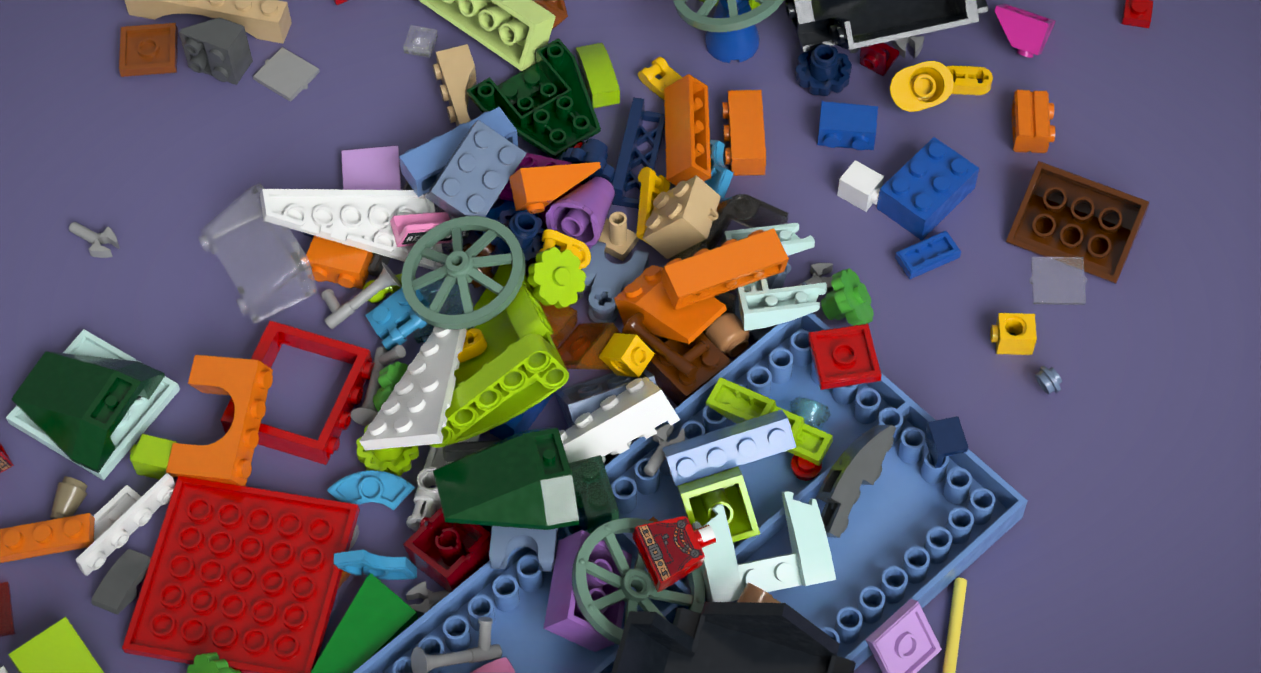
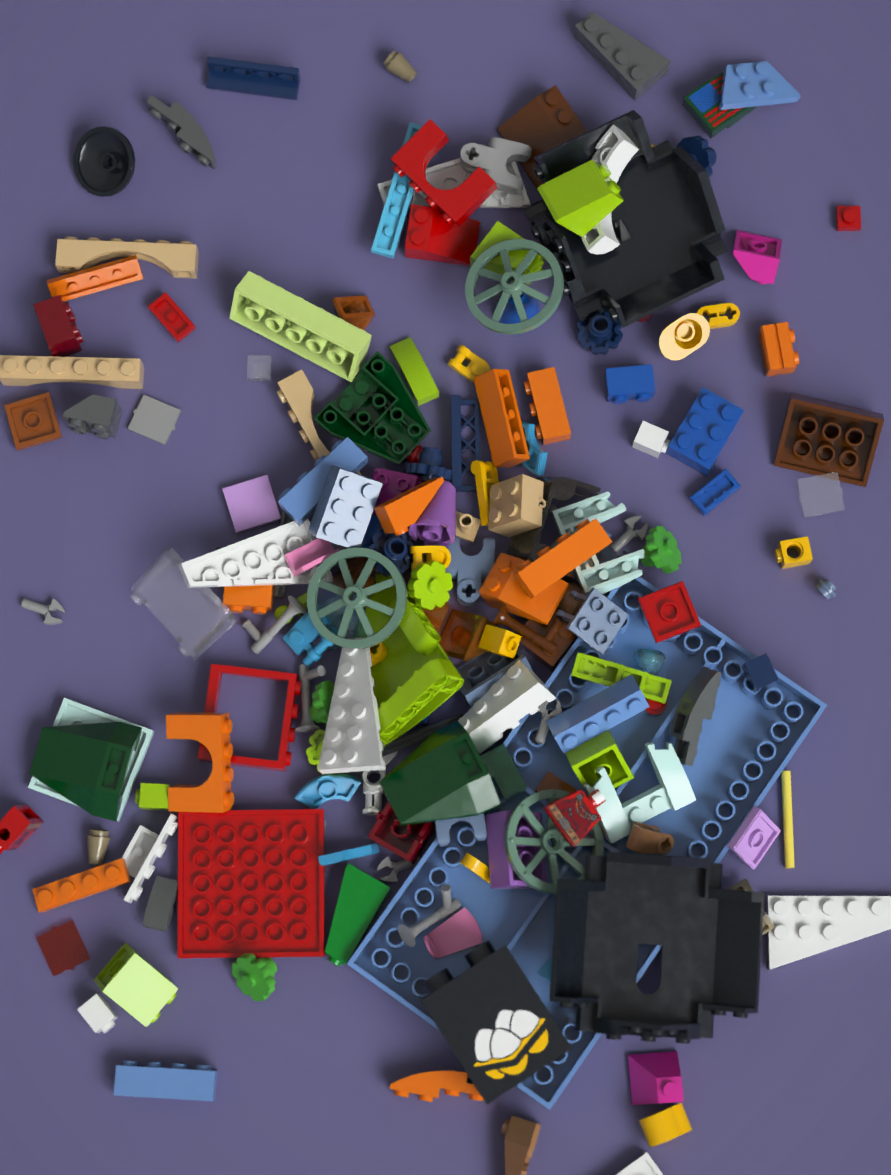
camera: 10 degrees left, 20 degrees up
(533, 606) = (476, 867): none -> yellow beam
(750, 346) = (596, 620): none -> sand blue plate

